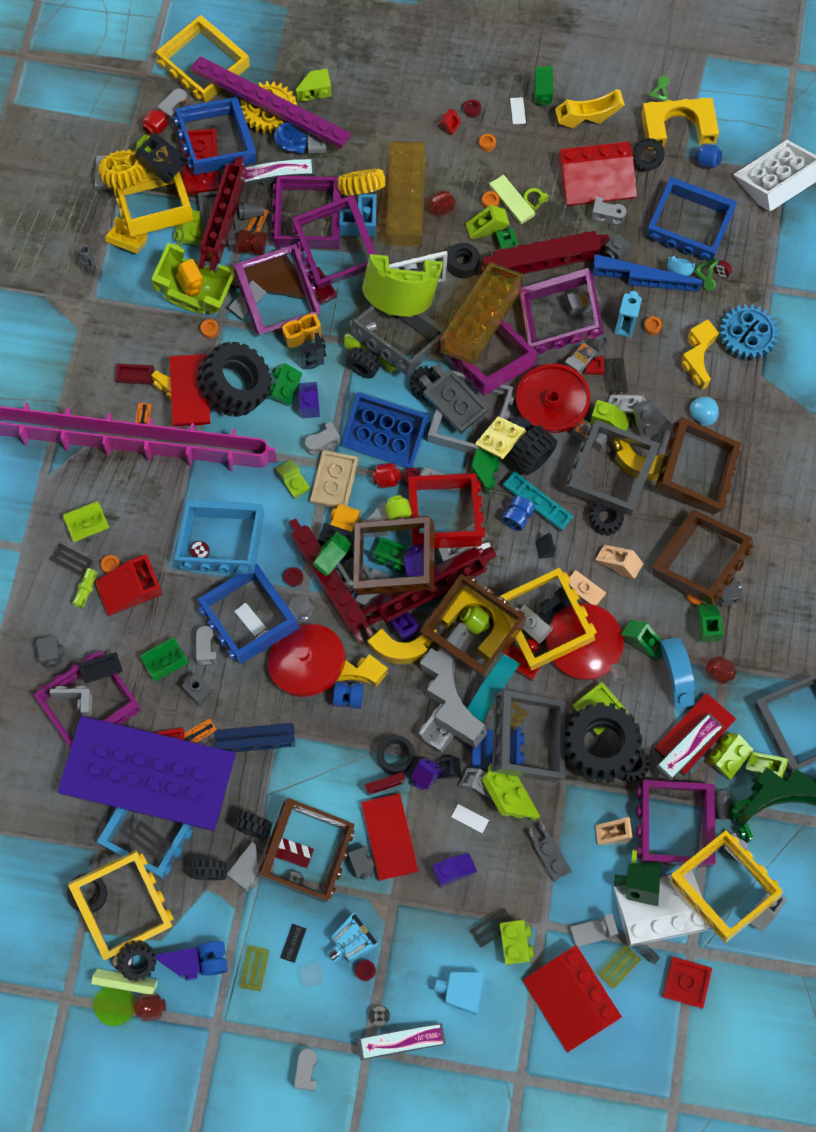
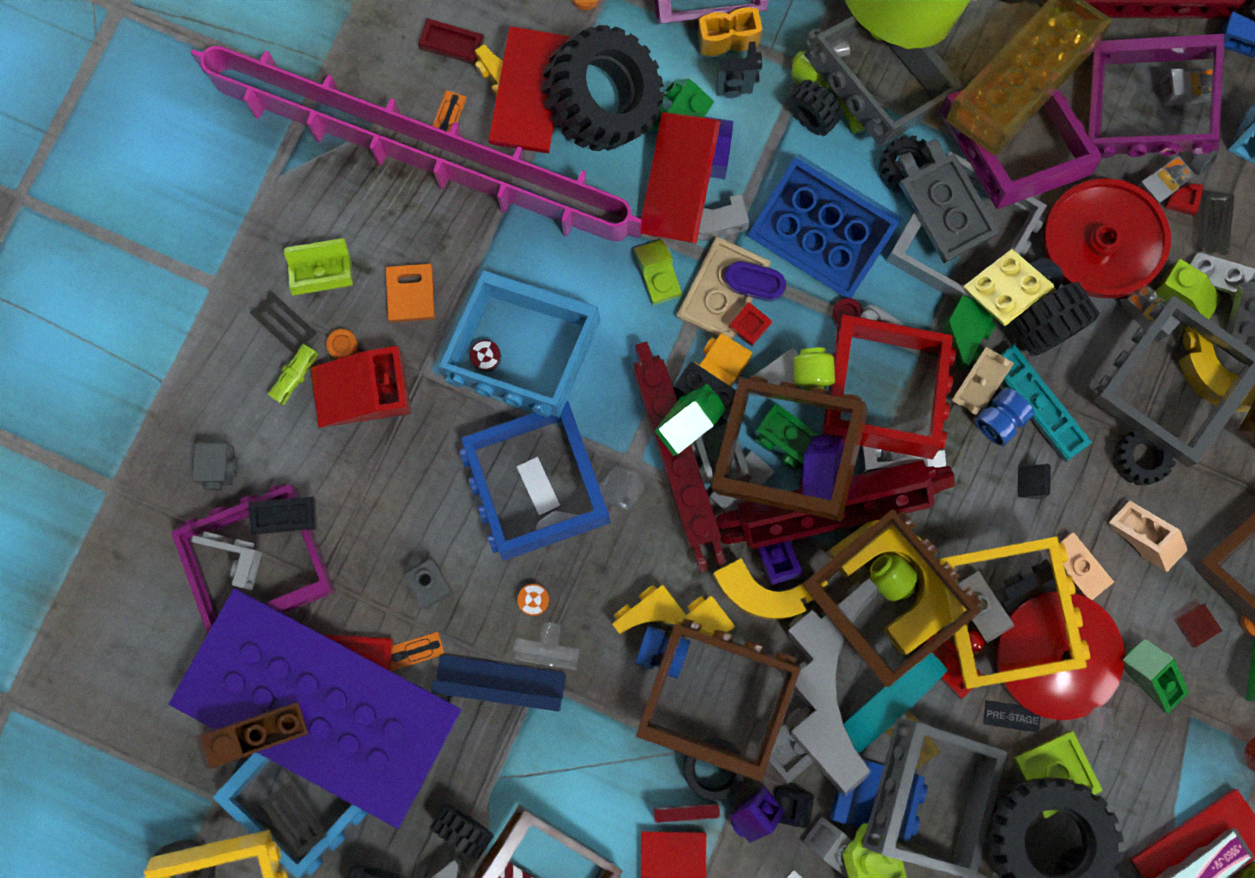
camera: 15 degrees right, 10 degrees up
(112, 795) = (251, 735): none -> reddish brown slope
(145, 529) = (410, 300): none -> orange piece
(164, 659) = (388, 522): green bracket -> none
(204, 643) = (455, 515): light grey leg -> none
(263, 685) = (533, 600): none -> orange tile
(278, 711) = (547, 649): none -> clear tile
(292, 420) = (679, 177): none -> red tile
(293, 577) = (622, 434): dark red tile -> none
(307, 661) = (610, 582): red dish -> none
(352, 470) = (755, 281): none -> dark purple tile
(355, 495) = (750, 324): none -> red tile
(382, 674) = (705, 751): none -> reddish brown window
(386, 475) = (808, 303): red head -> none
(500, 495) = (982, 381): none -> tan hinge
(565, 685) = (1010, 717): none -> black sticker
(662, 606) = (1198, 625): none -> clear red tile
(680, 671) = (1206, 744): dark azure arch -> none

